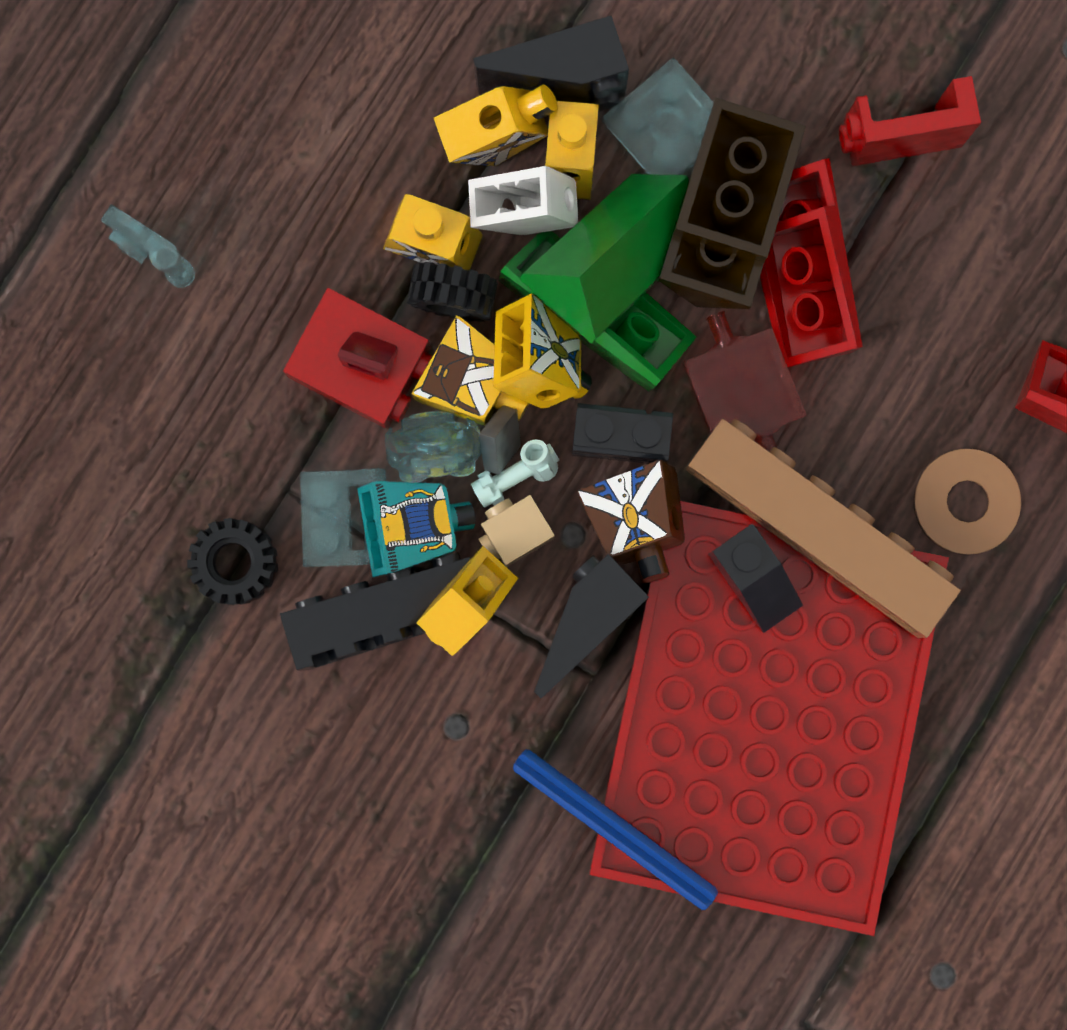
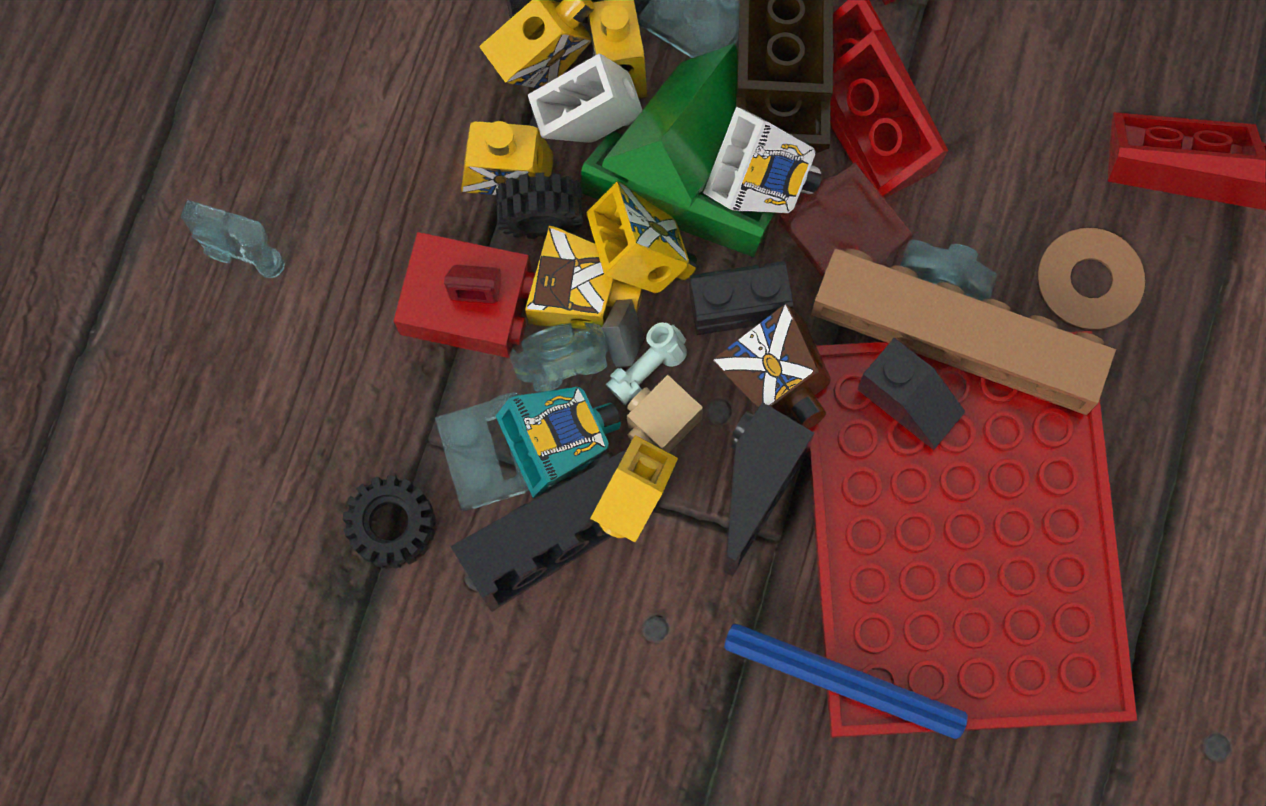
camera: 15 degrees left, 10 degrees down
(674, 318) = (761, 167): none -> torso
(833, 467) = (951, 266): none -> clear light blue plate

